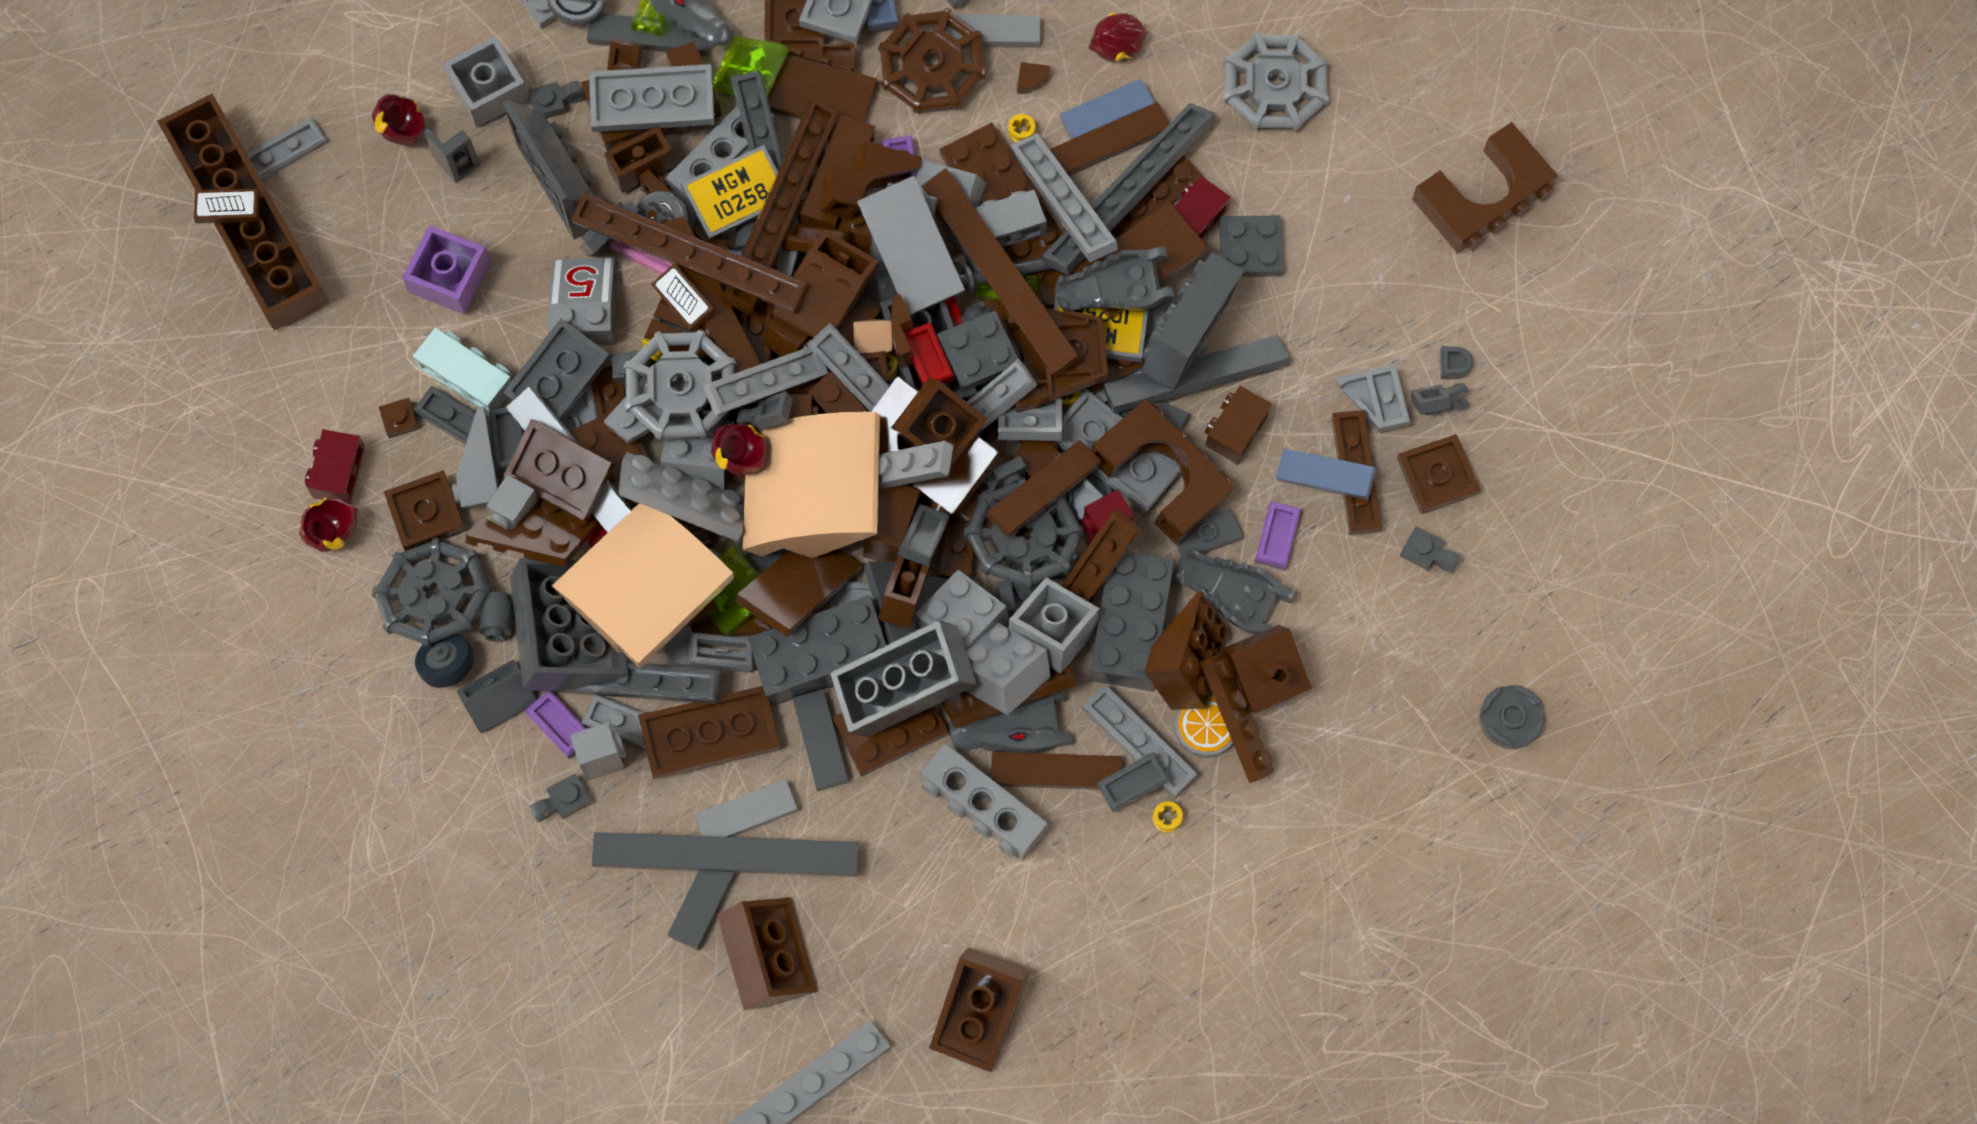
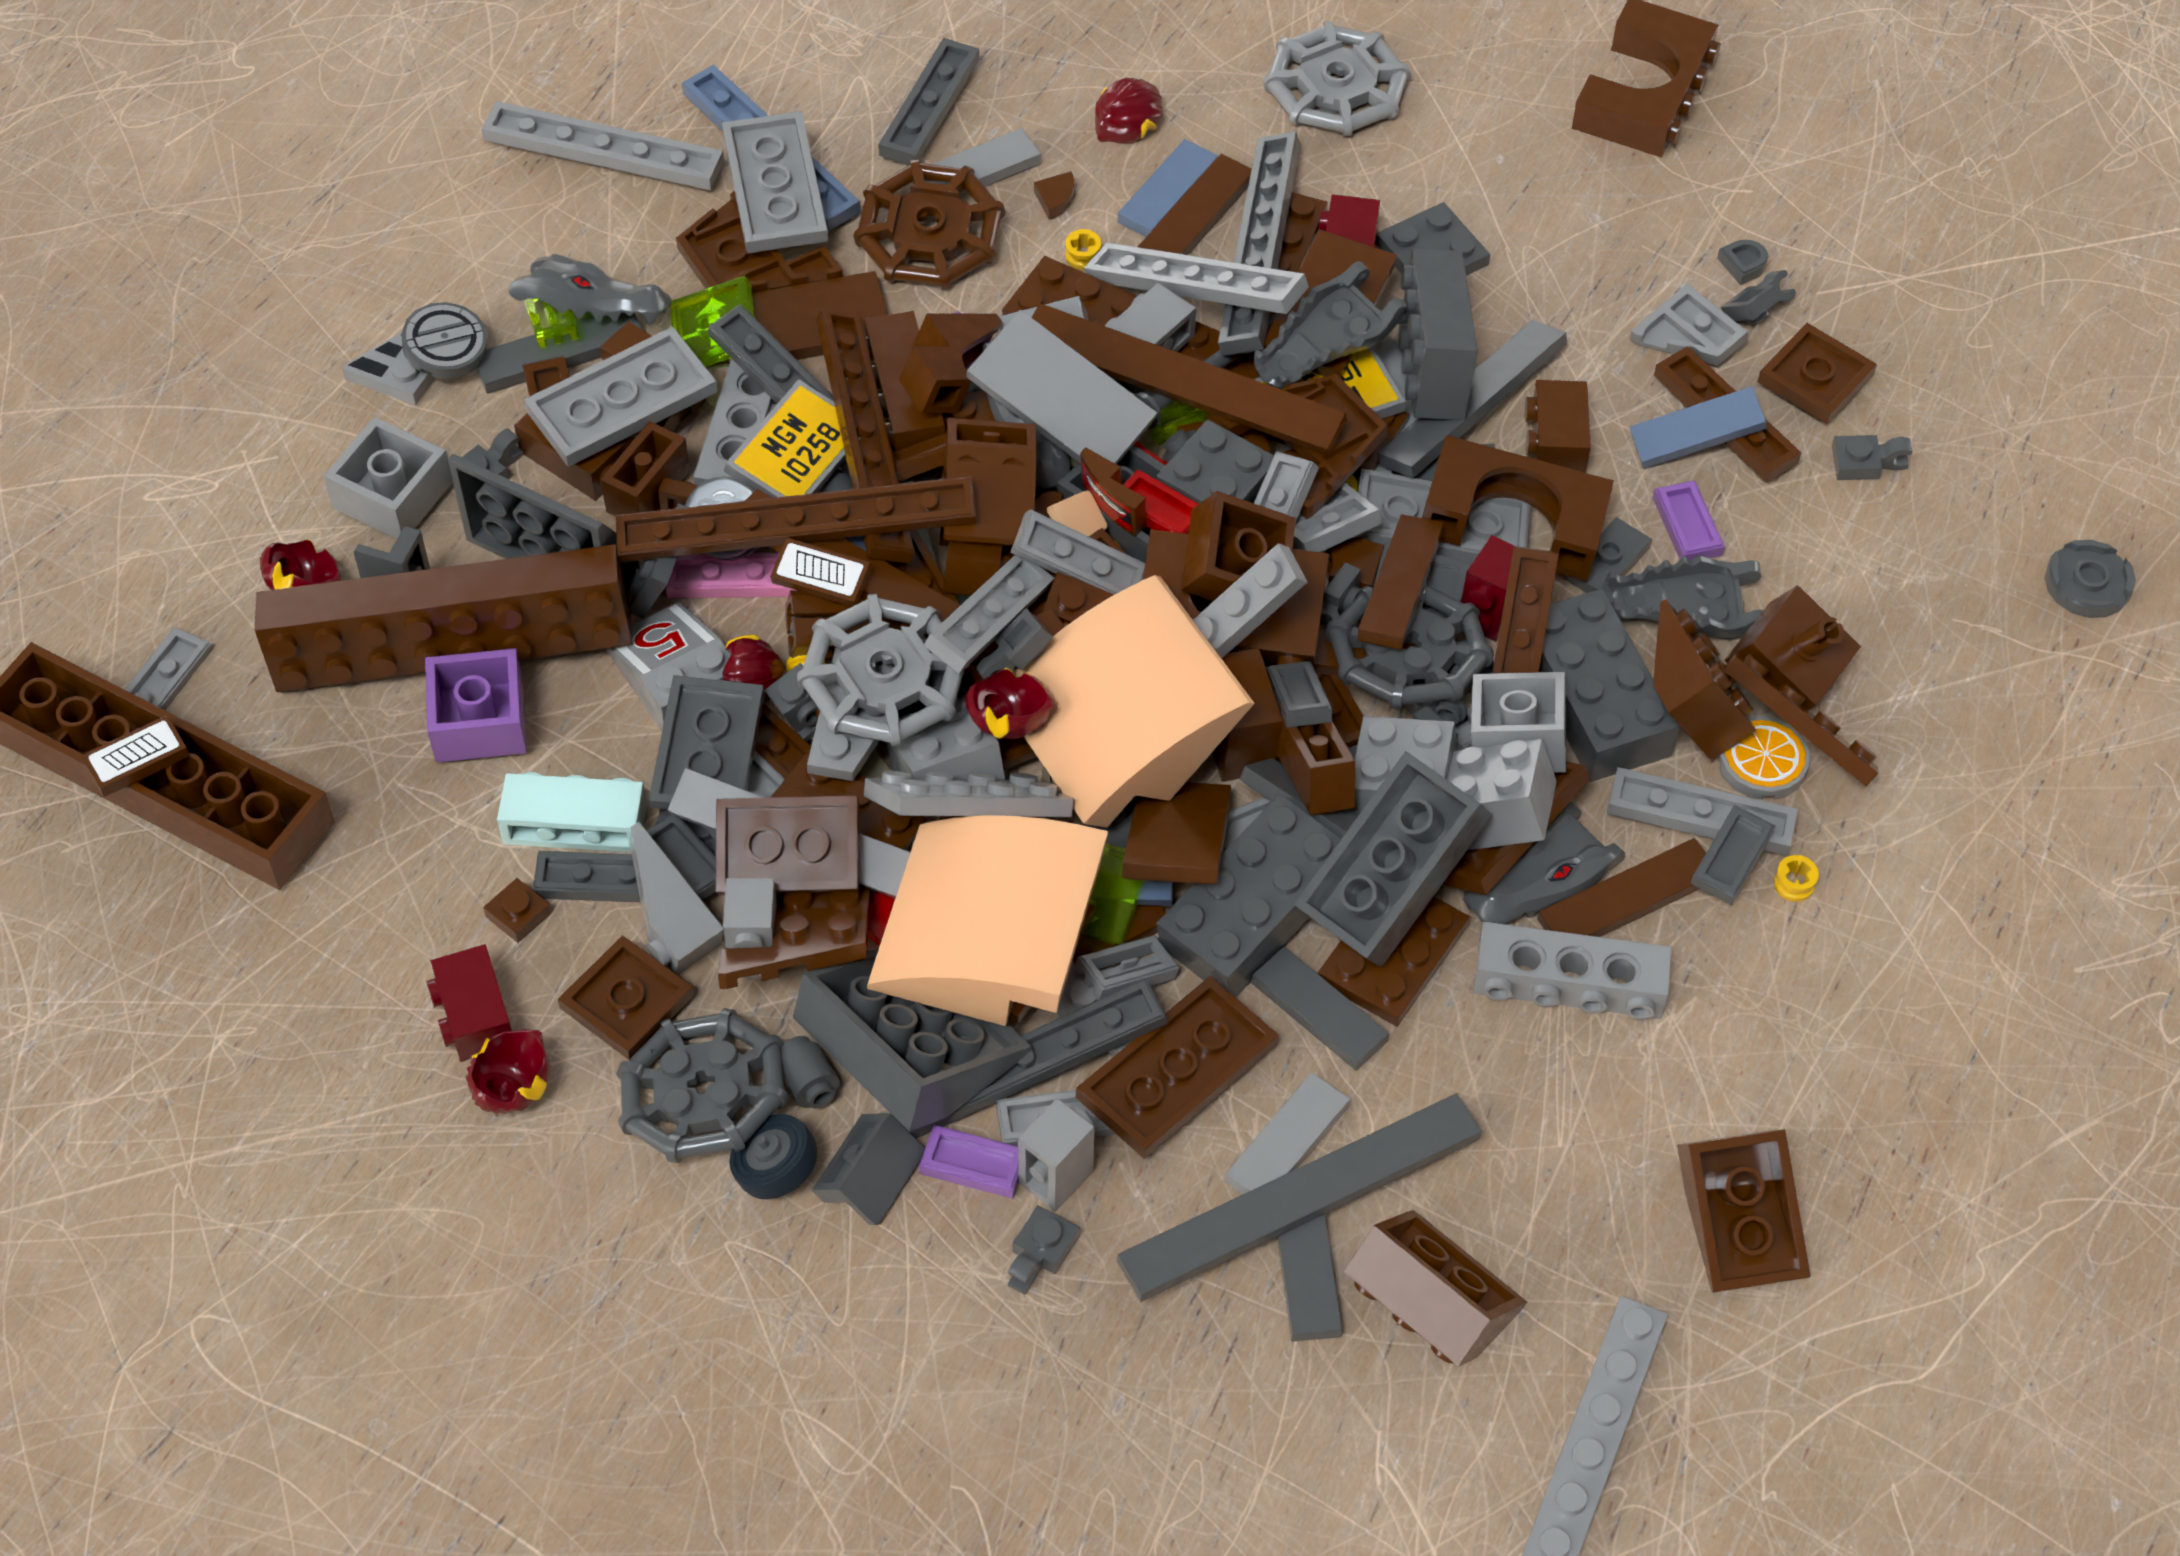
camera: 30 degrees left, 15 degrees down
(457, 203) = (397, 620): none -> reddish brown brick
(619, 332) = (752, 662): none -> dark red hair

